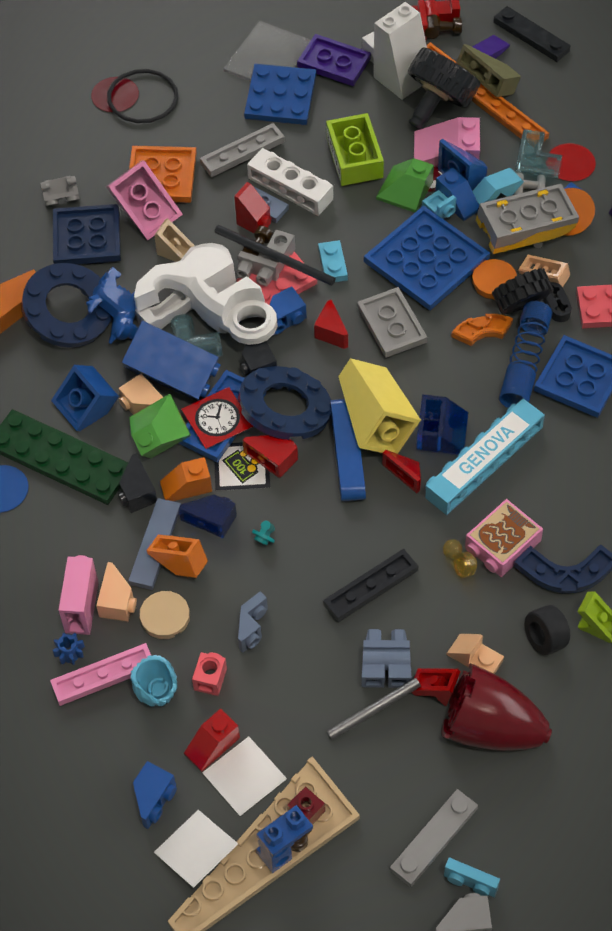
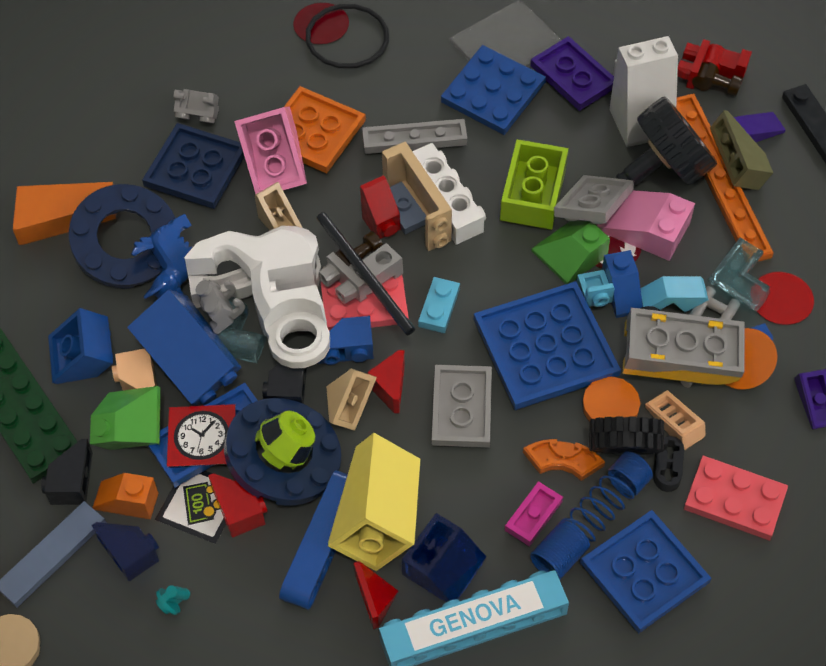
camera: 25 degrees right, 0 degrees up
(175, 321) = (218, 305): none -> light grey piece
(179, 554) = (60, 581): orange slope -> none
(278, 184) = (403, 166): none -> tan panel
(288, 389) = (286, 439): none -> lime cone
(309, 347) = (348, 397): none -> tan slope
(405, 142) = (593, 199): none -> light grey plate
(462, 161) = (647, 250): blue slope -> none
(484, 371) = (533, 513): none -> dark pink plate

